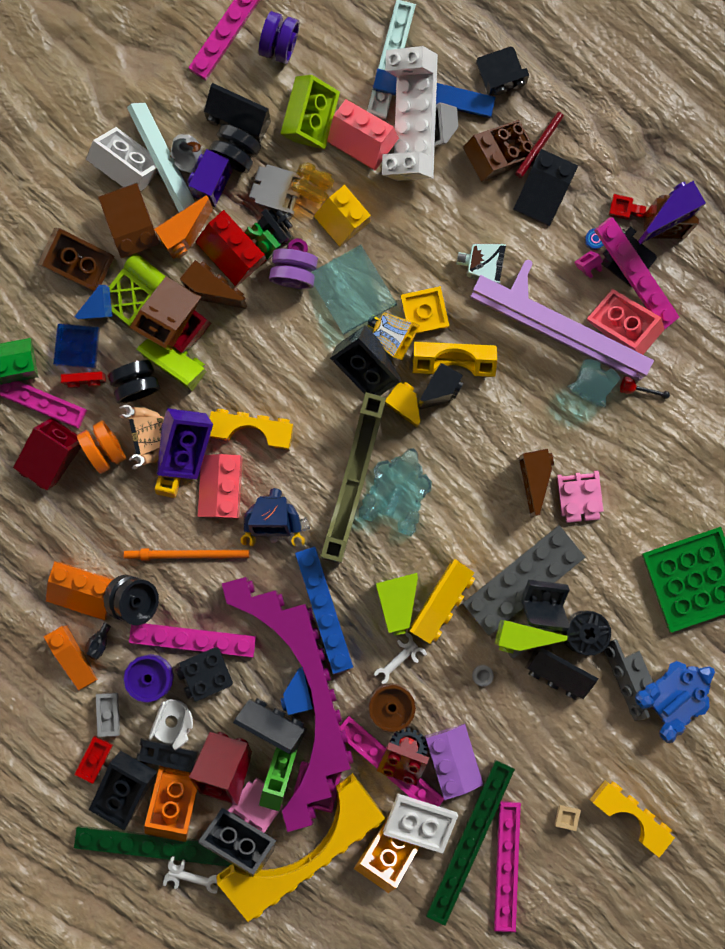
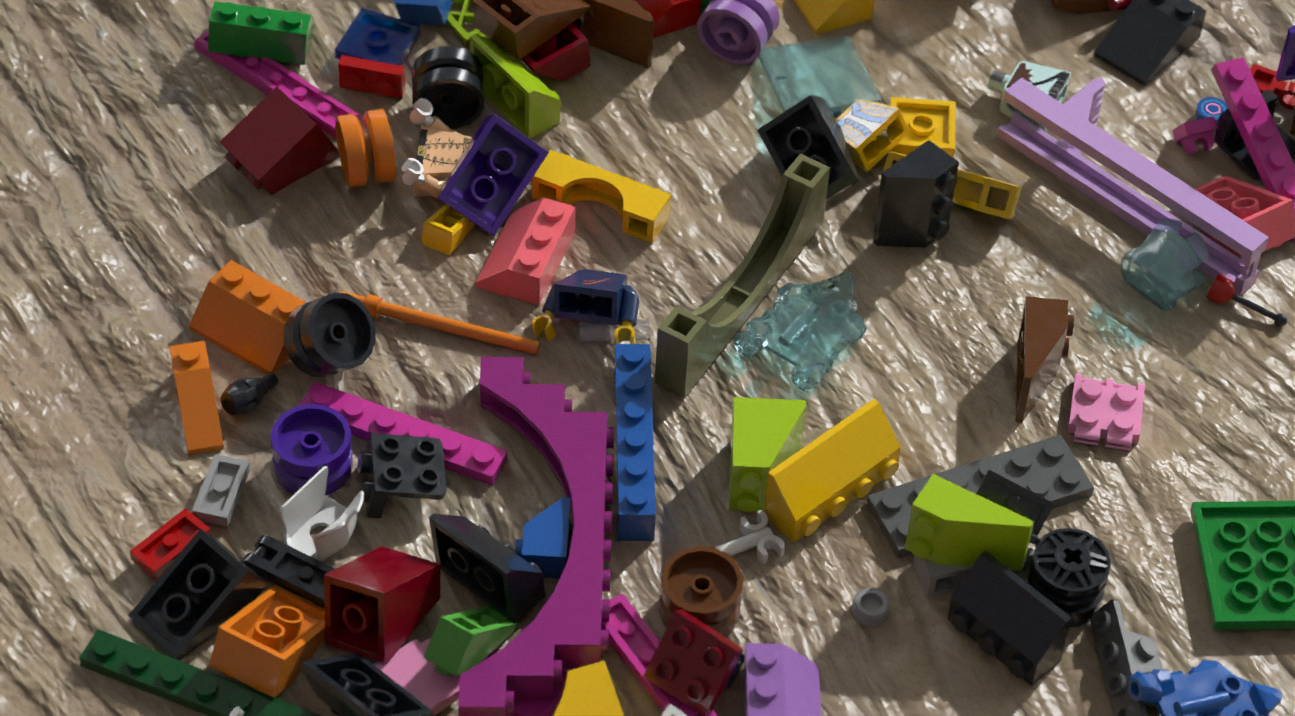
camera: 15 degrees right, 35 degrees down
(404, 403) = (852, 221): yellow slope -> none

